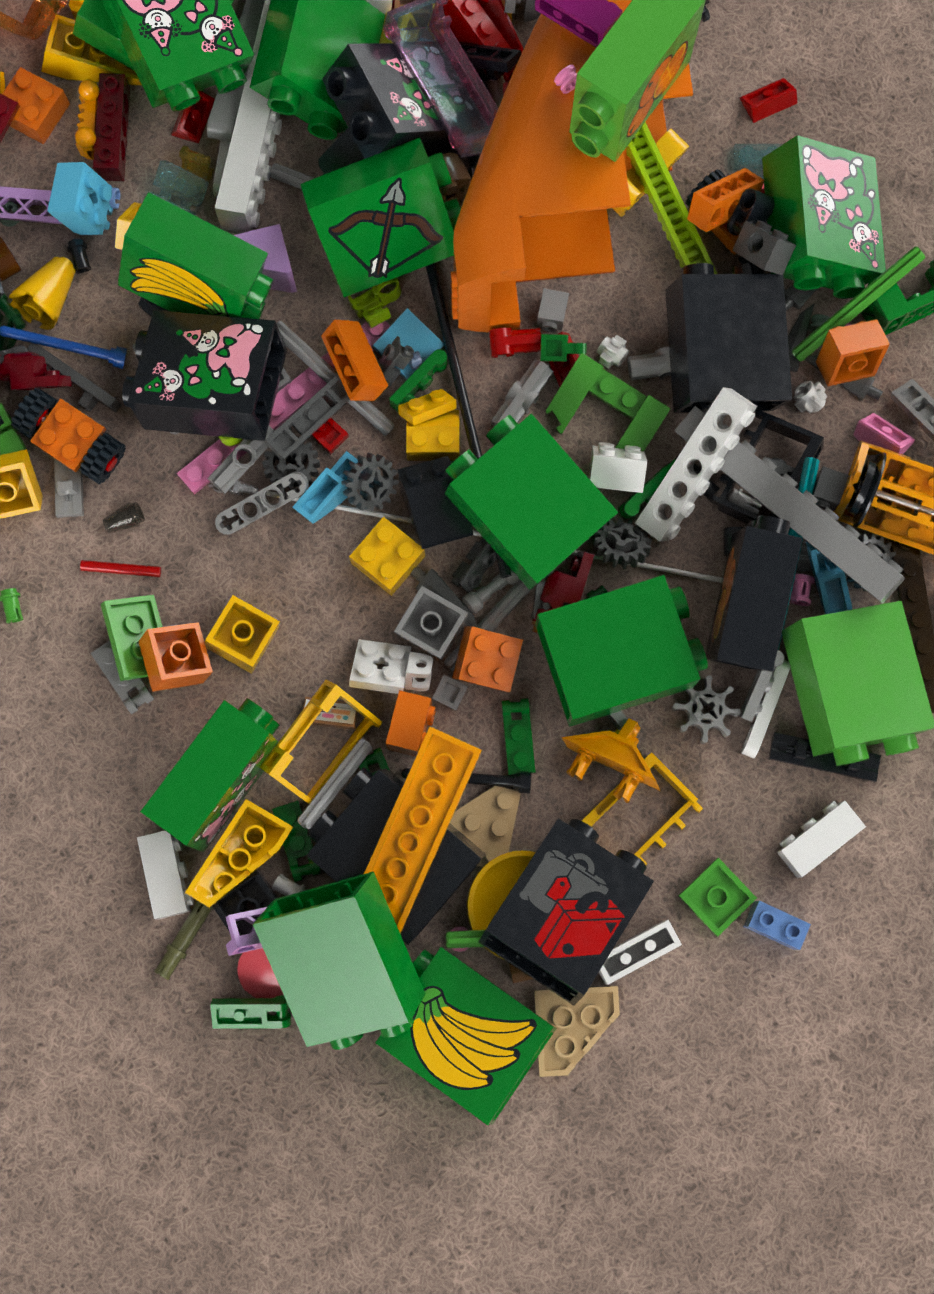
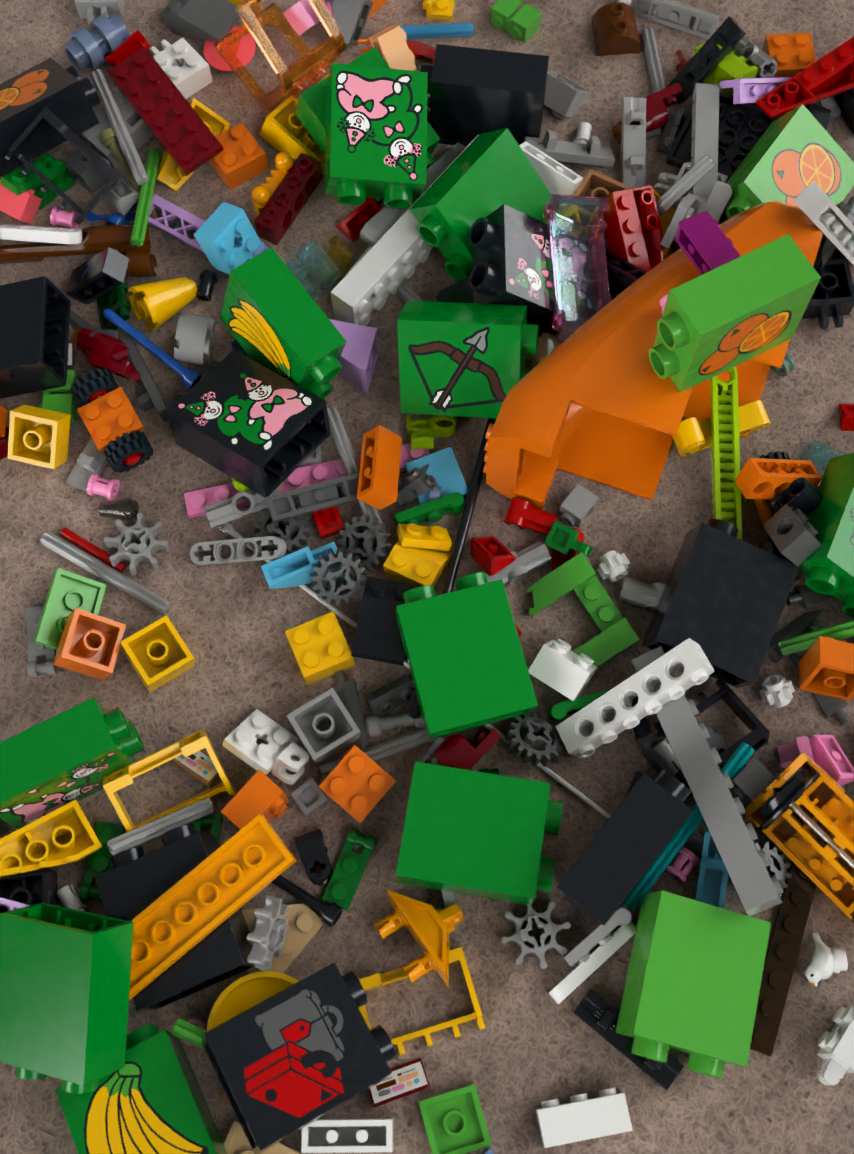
camera: 30 degrees right, 10 degrees down
(95, 504) = (103, 487): none -> bright pink bush
(103, 316) = (194, 338): none -> light grey brick
(144, 584) = (105, 572): none -> light grey axle
(165, 551) = (130, 550): none -> light grey gear
(365, 435) = (365, 543): none -> dark grey gear
(482, 737) = (314, 853): none -> black piece
(483, 824) = (268, 933): none -> light grey gear
(497, 394) = (490, 554): none -> red slope
(664, 883) = (401, 1082): none -> slope
(848, 444) = (791, 751): none -> bright pink panel

